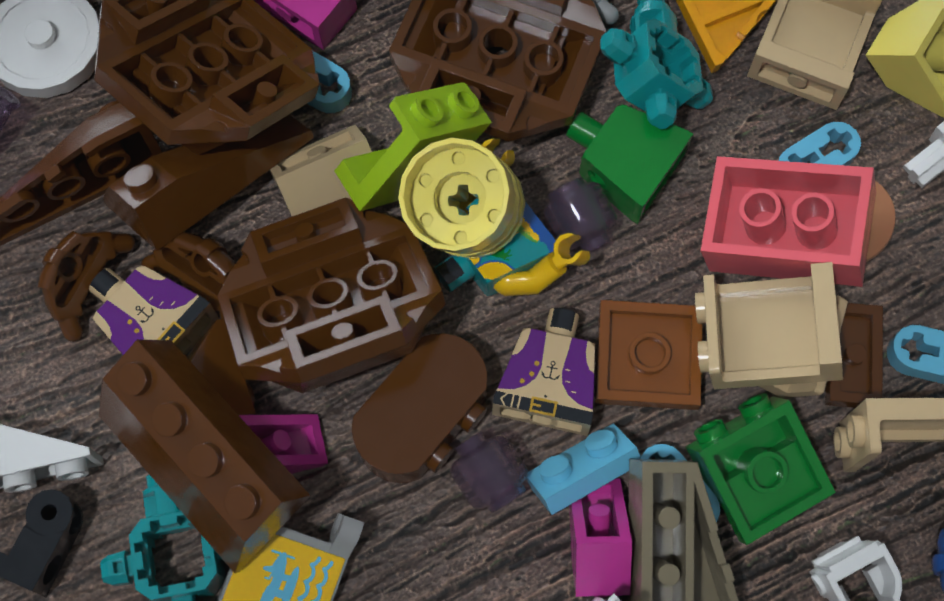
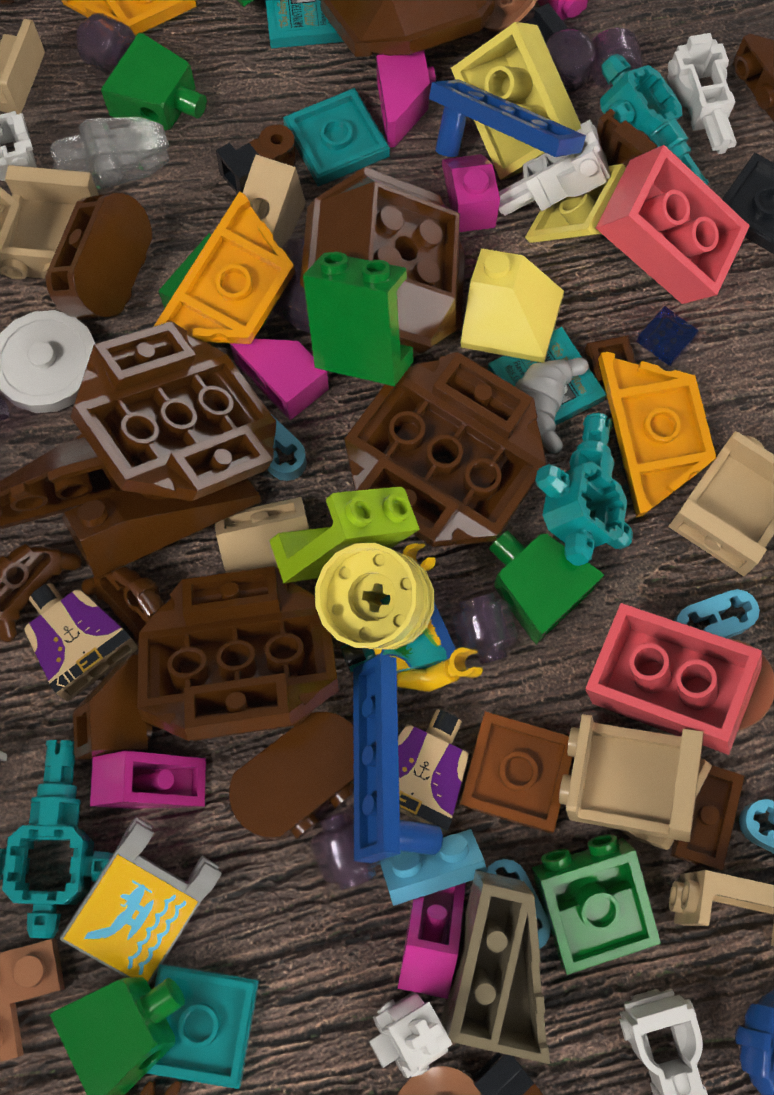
camera: 10 degrees right, 0 degrees up
(198, 450) = (86, 777): reddish brown slope -> none
(504, 377) = (377, 820): none -> blue piece

